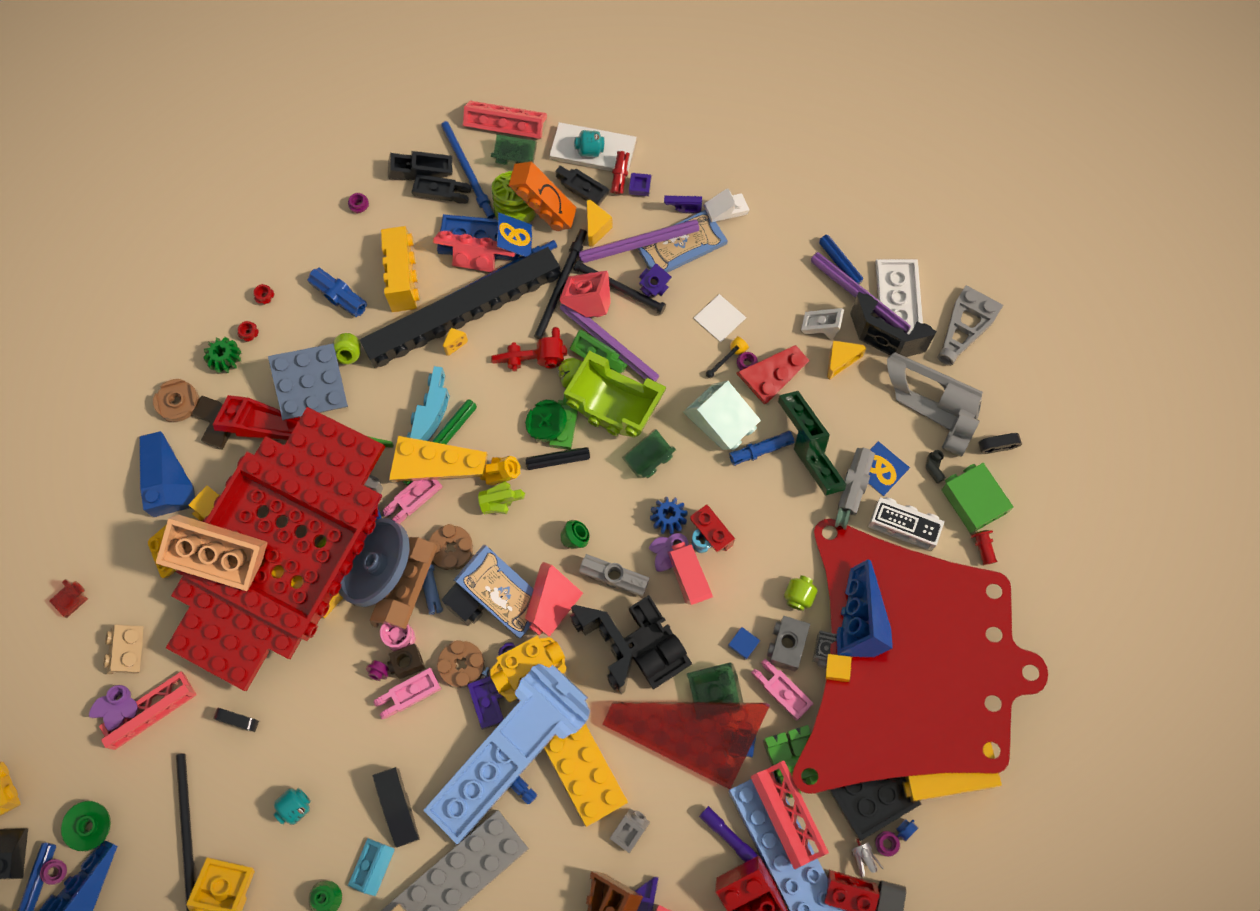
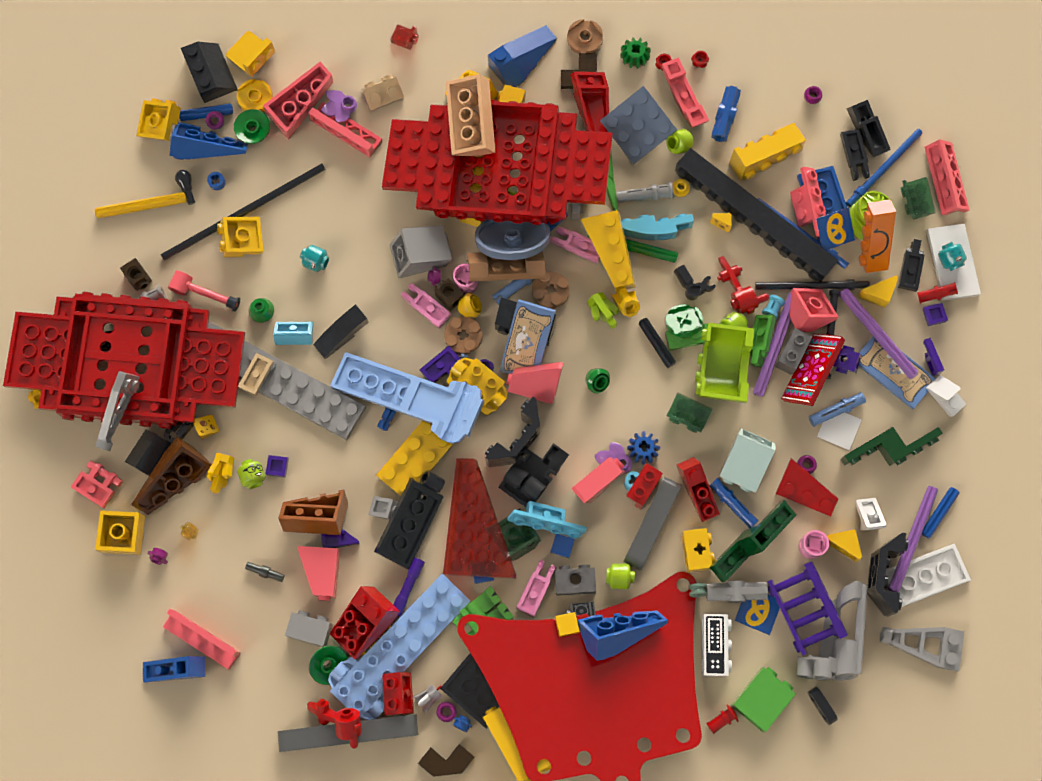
camera: 70 degrees right, 5 degrees up
(47, 808) = (253, 95): none -> yellow tile
(81, 755) = (295, 101): none -> coral wedge
(134, 890) = (212, 176): none -> blue bush
(236, 719) = (361, 192): black beam -> none
(293, 325) = (683, 94): none -> coral slope
(339, 676) = (420, 249): none -> light grey slope
(389, 398) = (653, 192): none -> light grey pin
(397, 374) = (681, 193): none -> yellow plate
(430, 643) = (470, 305): none -> yellow cone
(502, 402) = (693, 290): none -> black bar
(565, 322) = (773, 306): none -> medium azure bush
(599, 570) = (577, 435): light grey piece -> none
(625, 327) = (793, 351): none -> flat silver brick
(652, 315) = (813, 369): none -> red tile
(655, 803) = (411, 520): none -> black hinge
(700, 303) = (857, 400): none -> medium blue pin
(709, 646) = (547, 518): none -> medium azure bracket
(732, 476) = (698, 488): none -> red slope
(737, 347) = (815, 451): hinge -> none
(755, 538) = (652, 523): none -> dark grey beam
(759, 276) = (891, 447): none -> dark green bracket
(785, 816) = (435, 620): coral fence -> none
(788, 505) = (690, 541): none -> yellow brick
(834, 386) = (813, 544): none -> bright pink wheel
(907, 399) = (819, 591): none -> dark purple fence
(933, 464) = (778, 653): pearl dark grey arm -> none
(945, 876) = (439, 766): none -> dark brown tile

